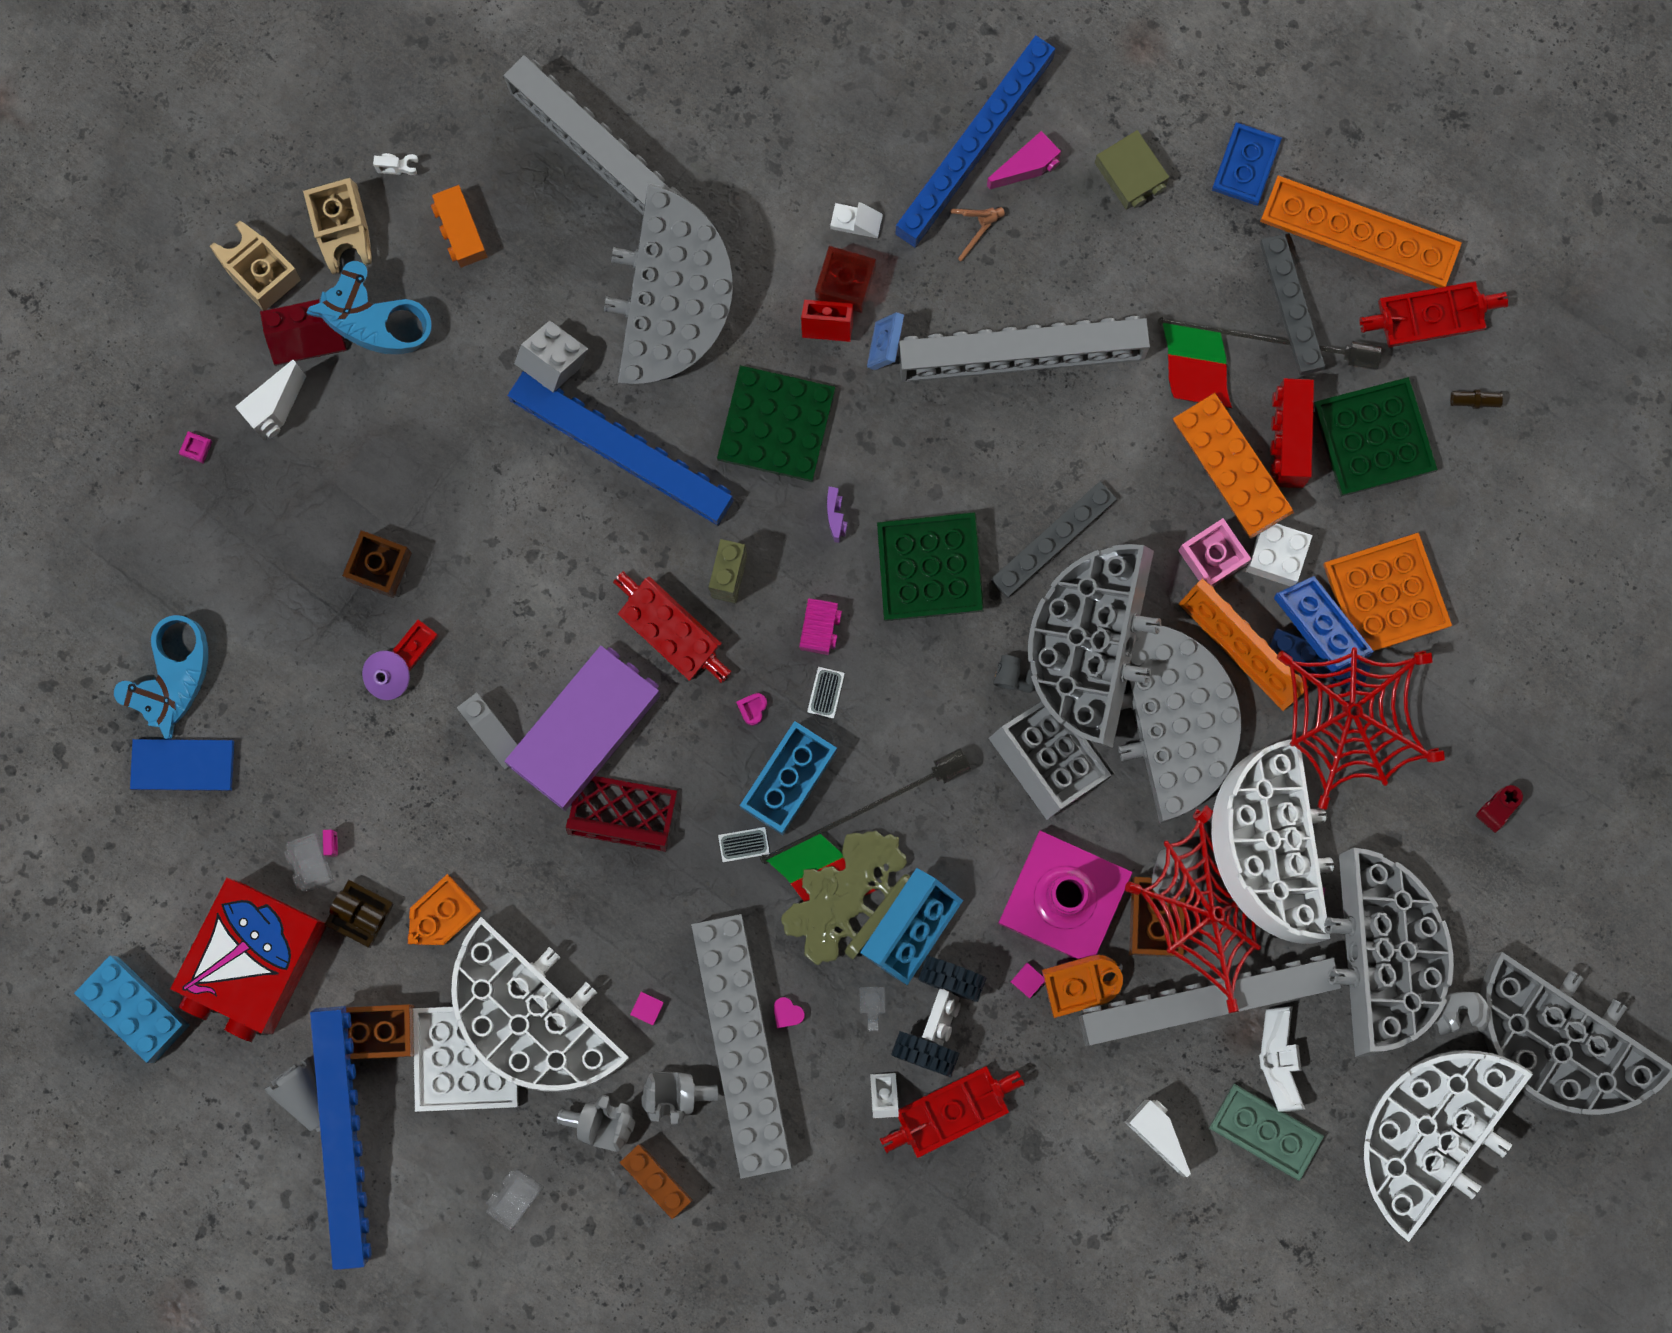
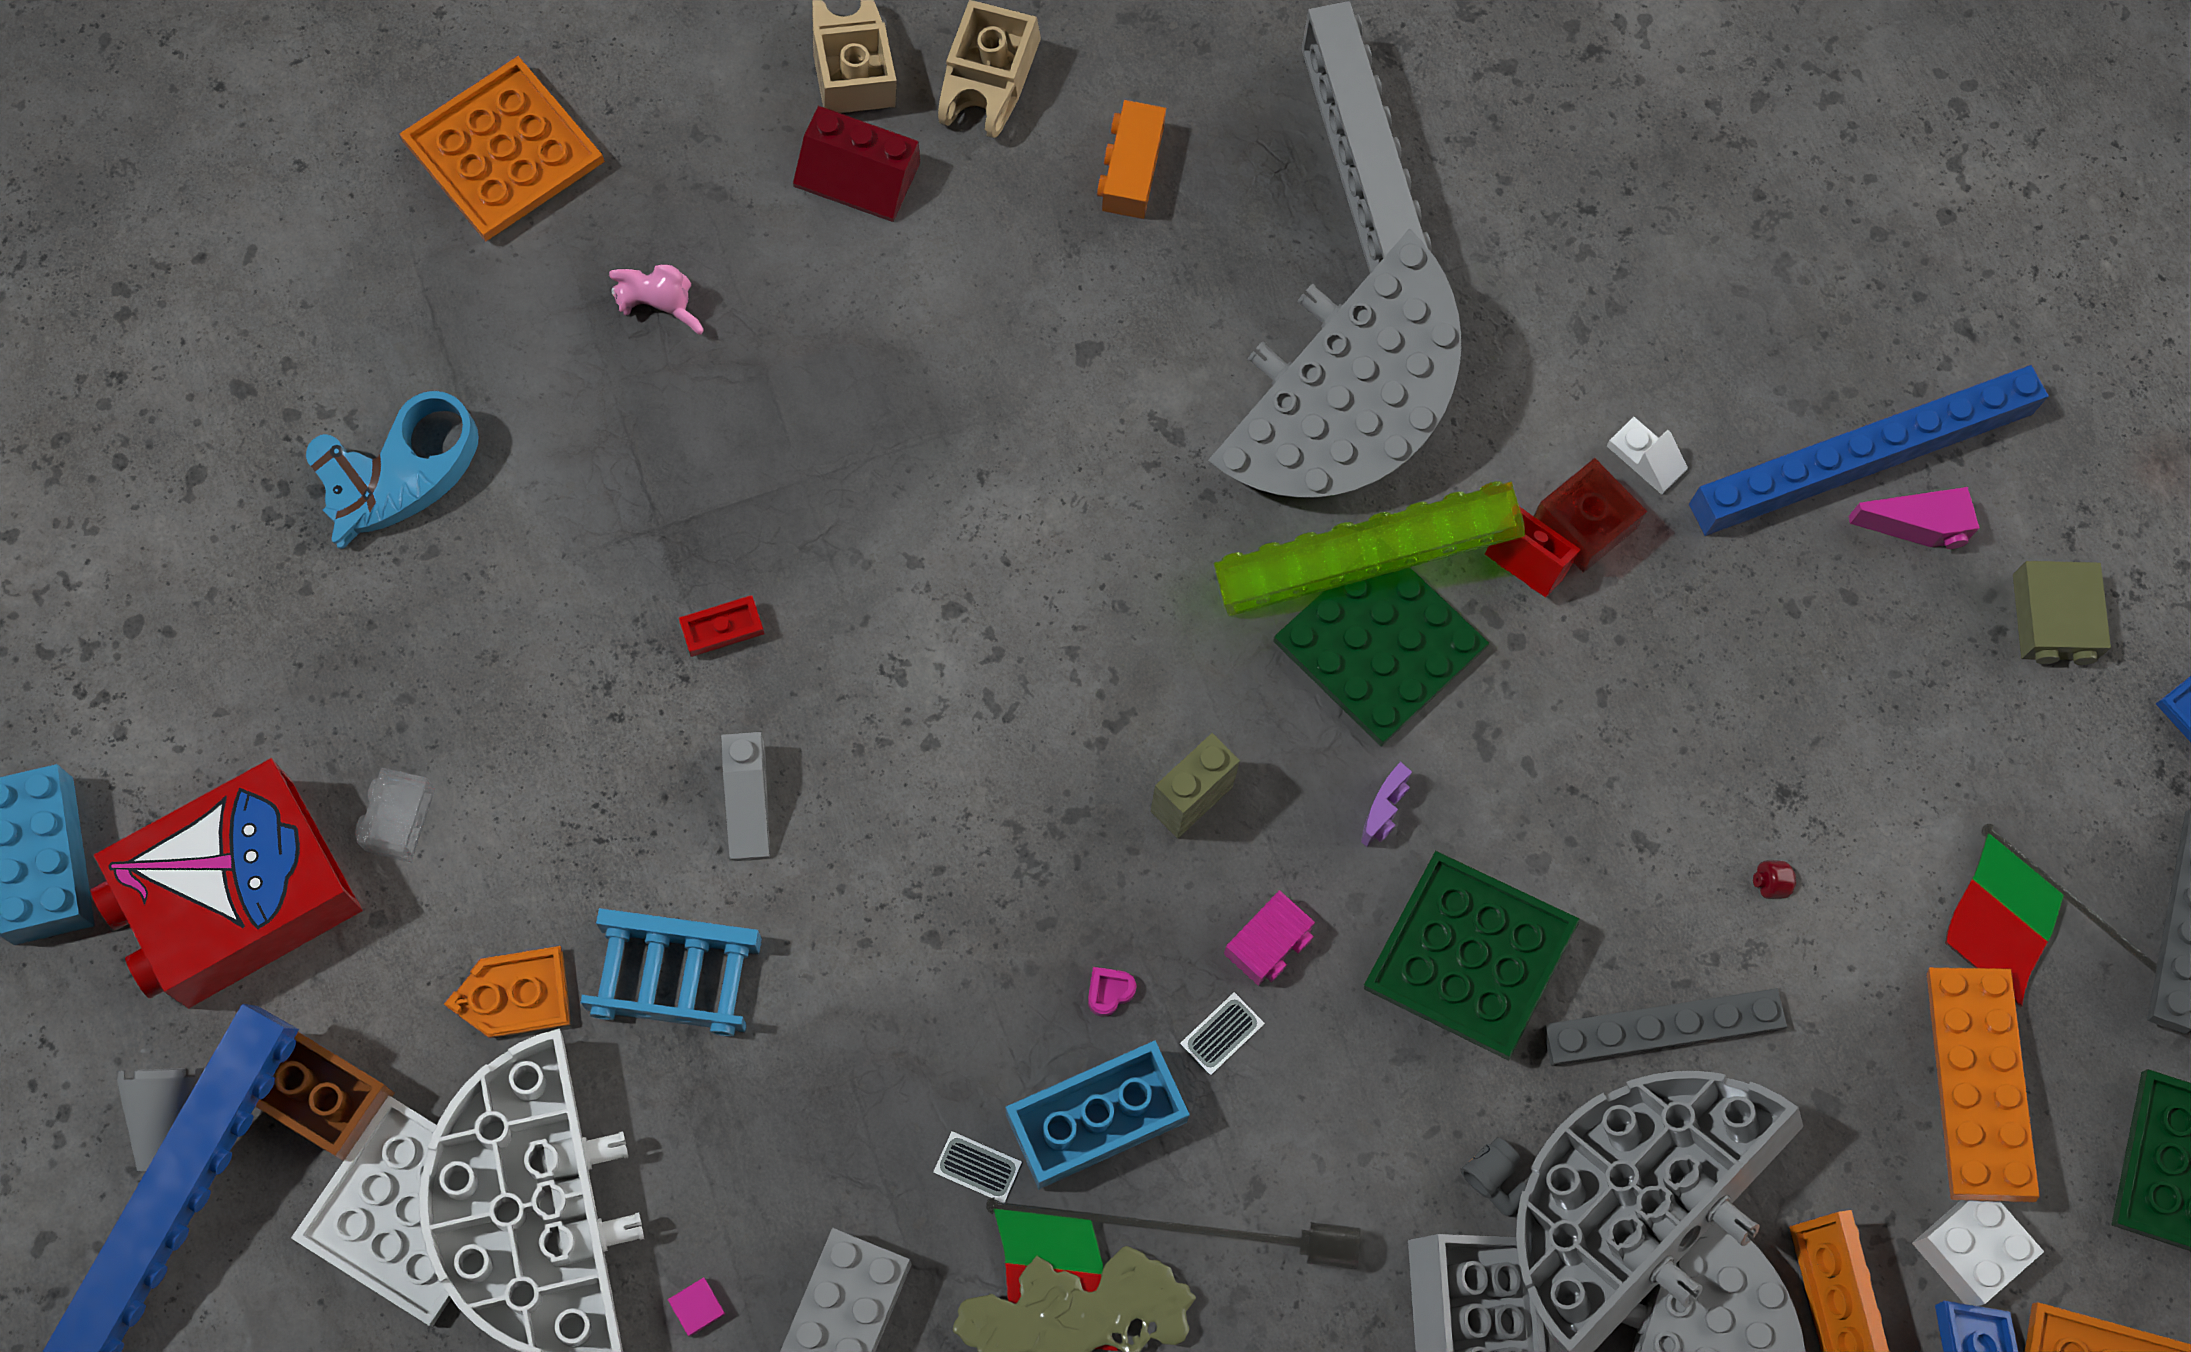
camera: 25 degrees right, 10 degrees down
(92, 450) = (502, 148): none -> orange plate
(182, 765) = (330, 589): blue tile -> none
(195, 447) = (627, 220): dark pink tile -> none
(245, 477) = (663, 289): none -> bright pink animal
(271, 402) = (760, 218): white slope -> none
(330, 843) = (439, 806): dark pink tile -> none
(358, 913) = (409, 921): dark brown plate -> none
(363, 323) = (928, 181): dark azure animal -> none
(377, 564) = (748, 493): reddish brown brick -> none
(392, 165) = (1098, 40): white plate -> none
(395, 672) = (675, 643): medium lavender dish -> none
(495, 834) = (658, 934): none -> dark azure fence
(551, 356) = (1143, 376): light grey brick -> none
(583, 727) = (868, 868): medium lavender brick -> none
(622, 449) = (1158, 548): blue brick -> none
(622, 833) = (818, 1039): dark red fence -> none
(670, 628) = (1069, 815): red plate -> none
(738, 377) = (1369, 548): none -> clear neon green brick
(885, 341) = (1594, 623): medium blue tile -> none
(985, 218) = (1823, 554): nougat plant -> none
(1023, 349) = (1779, 749): light grey brick -> none
(1065, 421) = (1775, 879): none -> dark red piece
(1214, 553) = (1885, 1188): bright pink brick -> none
(1292, 433) = (2095, 1091): red brick -> none

